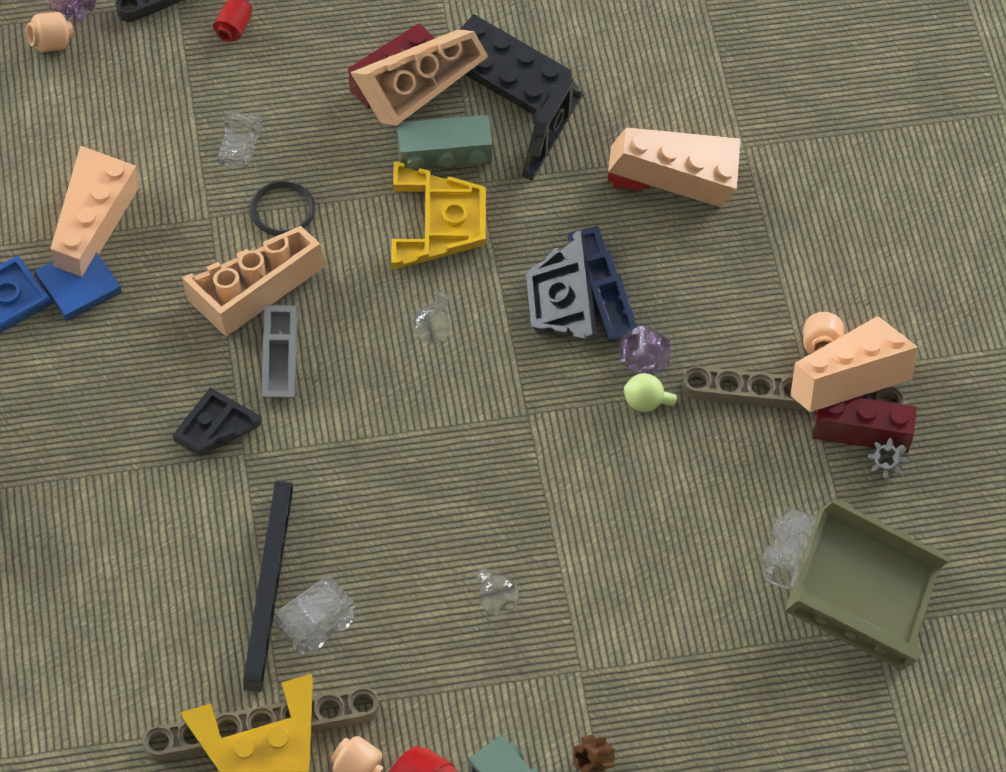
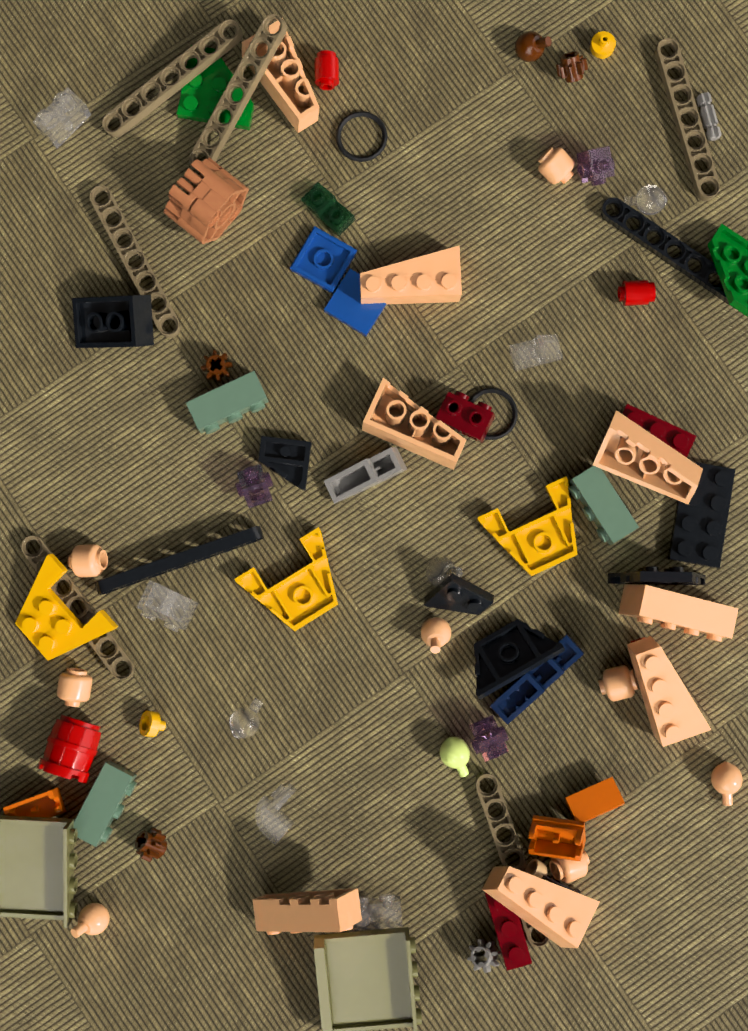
camera: 70 degrees right, 25 degrees up
(63, 448) = (218, 374): none -> reddish brown gear
(113, 455) = (227, 403): none -> sand green brick
(211, 682) = (88, 560): none -> light nougat head
(227, 463) = (254, 485): none -> clear purple brick
(273, 218) = (466, 416): none -> dark red brick
(381, 473) = (302, 594): none -> yellow wing
(447, 698) = (151, 724): none -> yellow tile
(470, 315) = (459, 596): none -> black wing
(499, 357) = (435, 633): none -> light nougat piece
(594, 123) = (679, 611): none -> light nougat wedge
(624, 613) = (270, 818): none -> clear brick
(647, 208) = (618, 683): none -> light nougat head
(752, 606) = (307, 911): none -> light nougat wedge
(766, 284) = (594, 800): none -> orange hinge
(787, 329) = (557, 838): none -> orange hinge
(802, 155) = (726, 780): none -> light nougat piece

